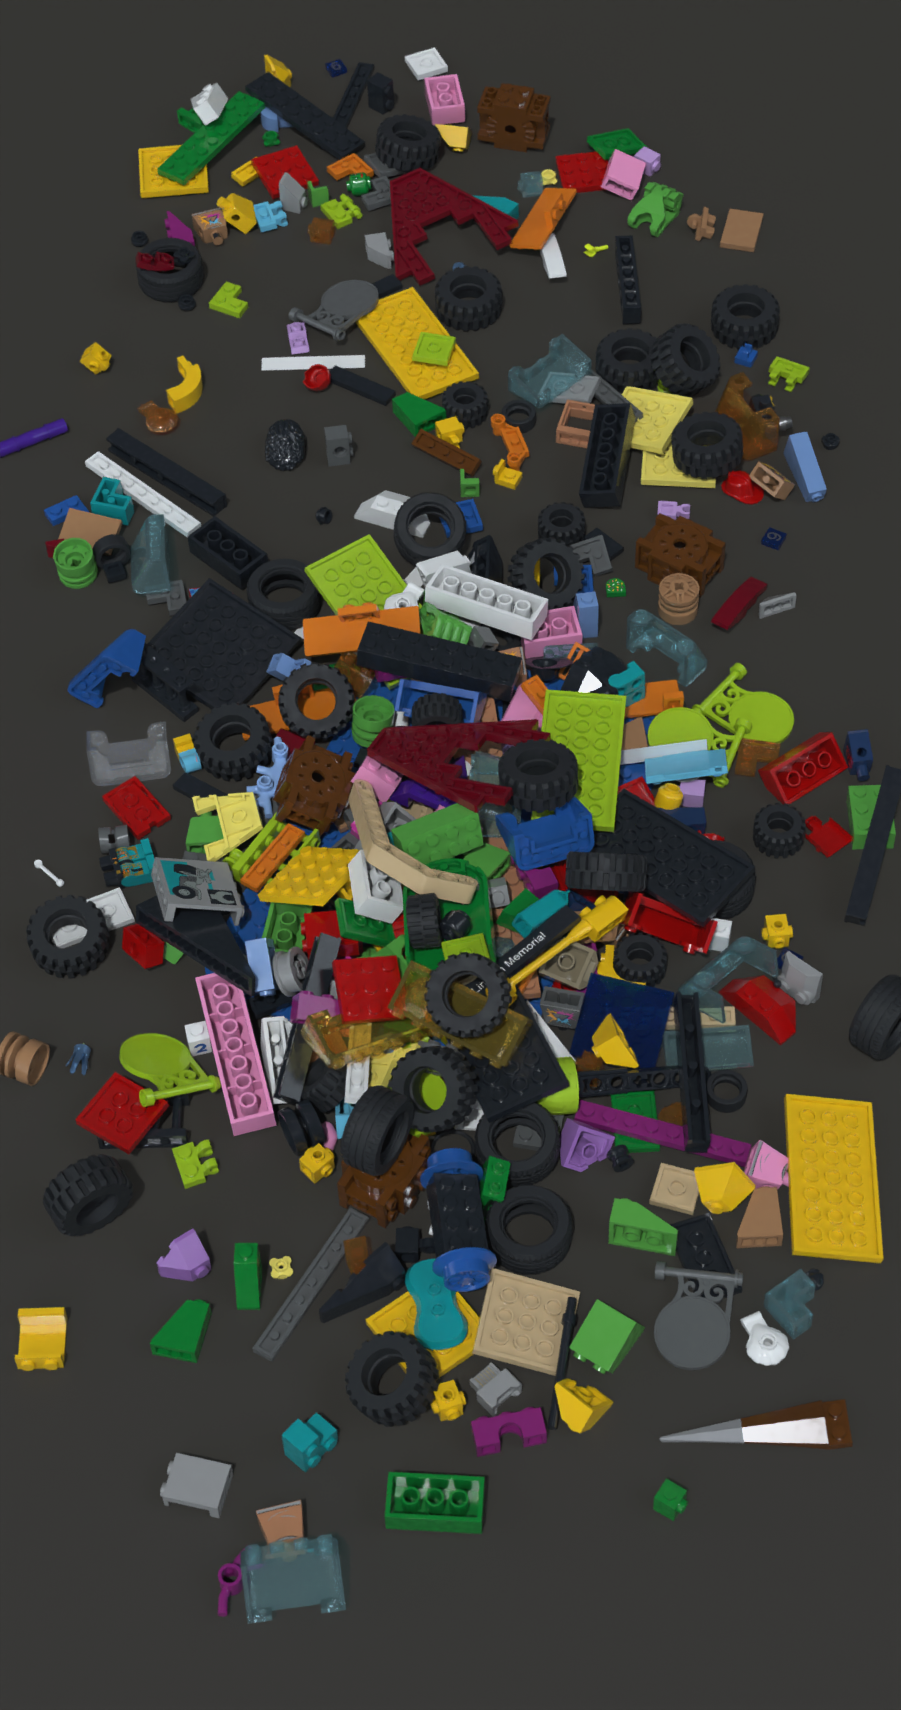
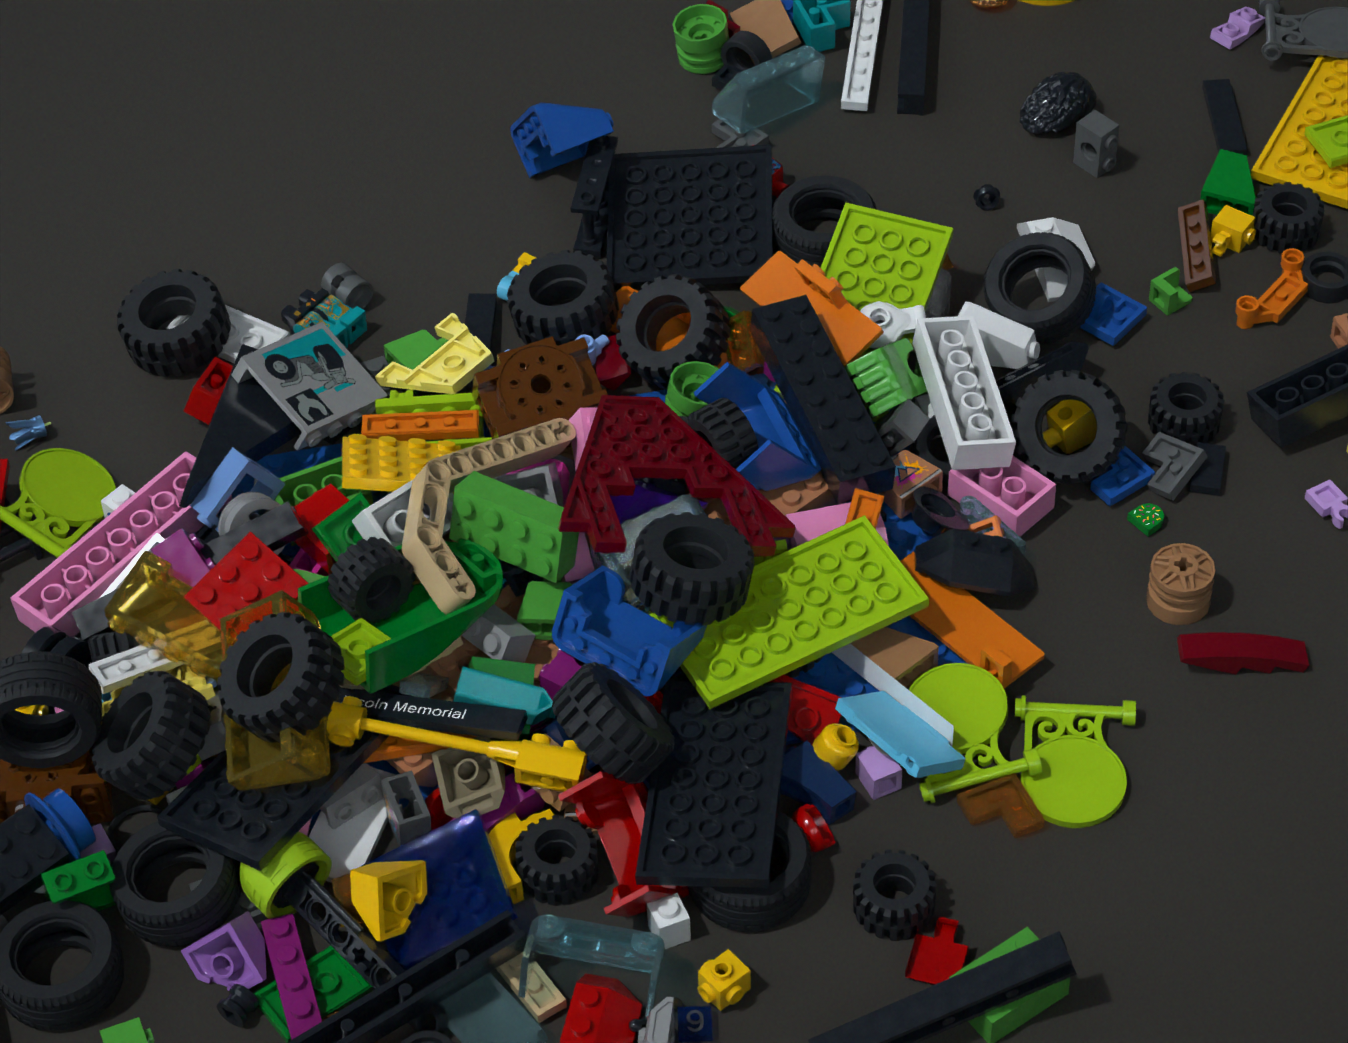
camera: 55 degrees right, 5 degrees down
(38, 864) = (271, 253): white hinge -> none
(123, 760) = (461, 232): clear windscreen -> none
(135, 807) = (412, 282): red piece -> none
(226, 551) = (843, 139): black brick -> none
(282, 665) = (717, 283): medium blue brick -> none
(296, 363) = (1218, 62): white sticker -> none
(317, 377) = (1188, 74): red hair -> none
(455, 925) = (396, 616): black head -> none
(506, 476) = (1221, 318): yellow bracket -> none
(587, 613) = (1061, 506): medium blue slope -> none
(628, 683) = (959, 599): teal hips -> none
(649, 631) = (1095, 629): clear light blue windscreen -> none
(680, 548) = (1256, 544): reddish brown piece -> none
(777, 604) = (1280, 692): light grey slope -> none
(803, 768) = (1027, 868): red slope -> none
(858, 753) = (1100, 913): dark blue torso -> none

